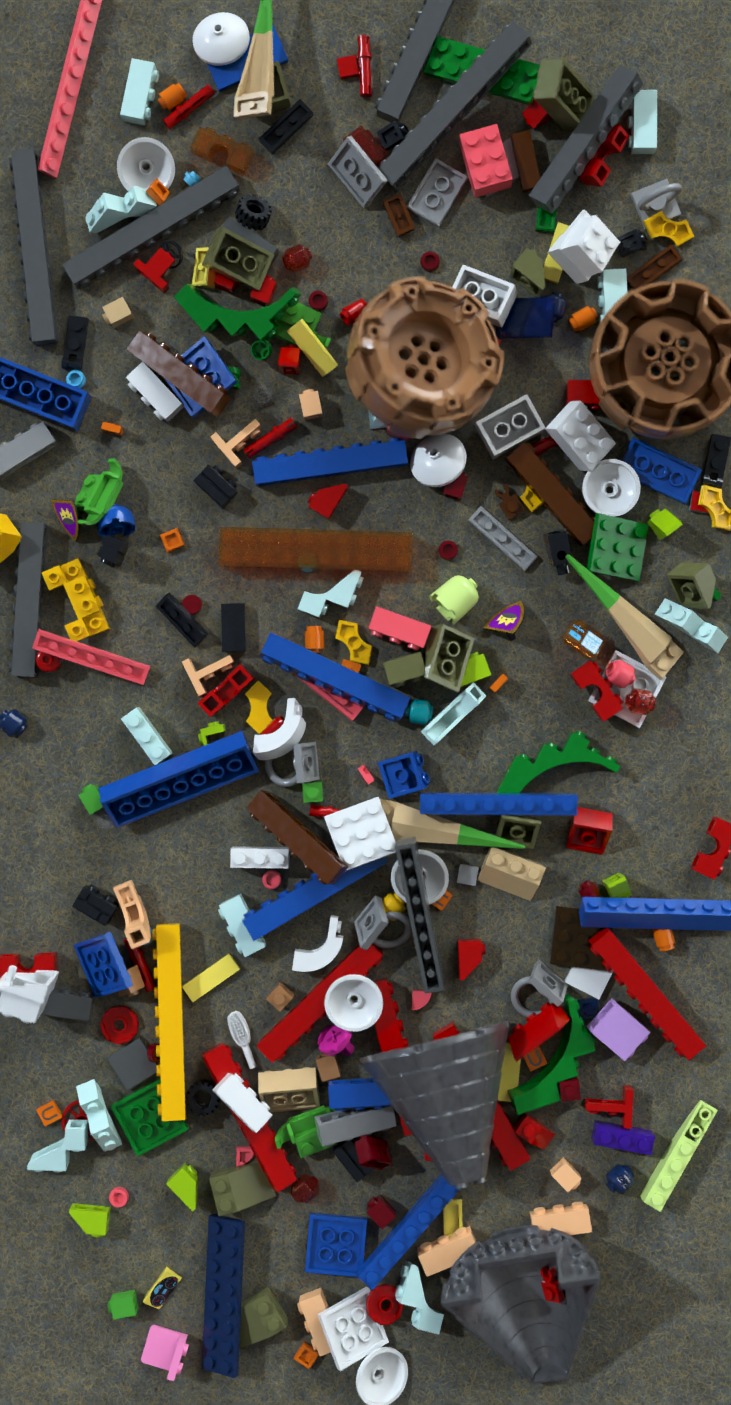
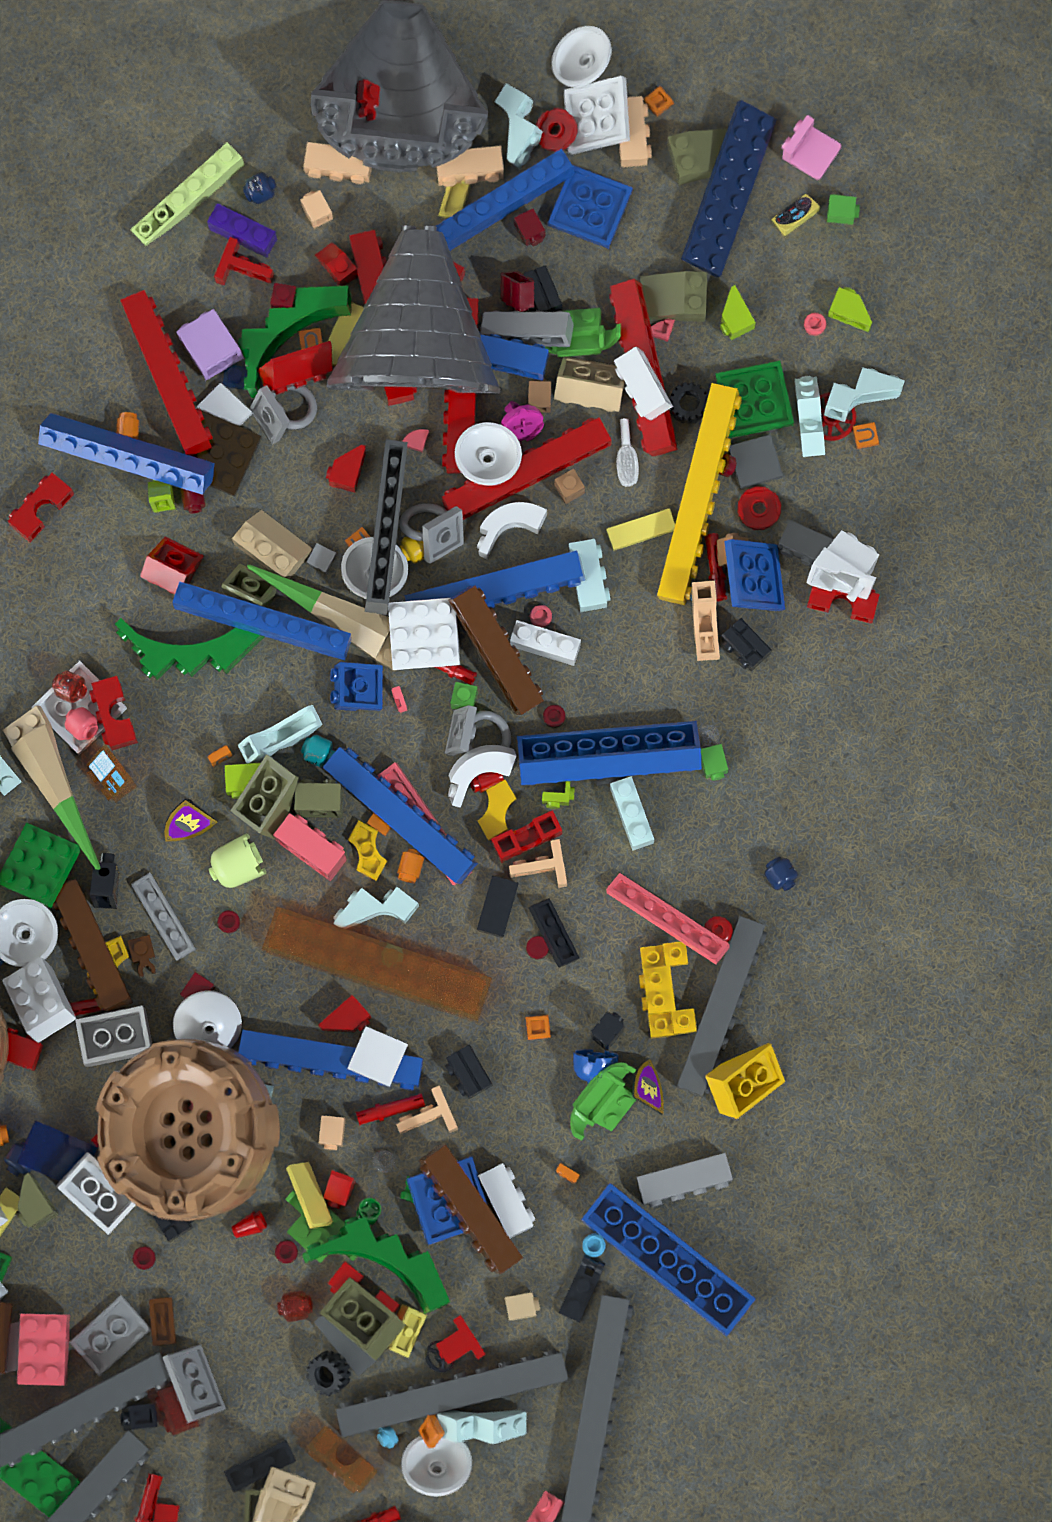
camera: 165 degrees left, 10 degrees down
(235, 799) = (554, 716): none -> dark red tile
(291, 473) = (377, 1056): none -> white tile
(305, 1188) = (605, 274): clear red head -> none

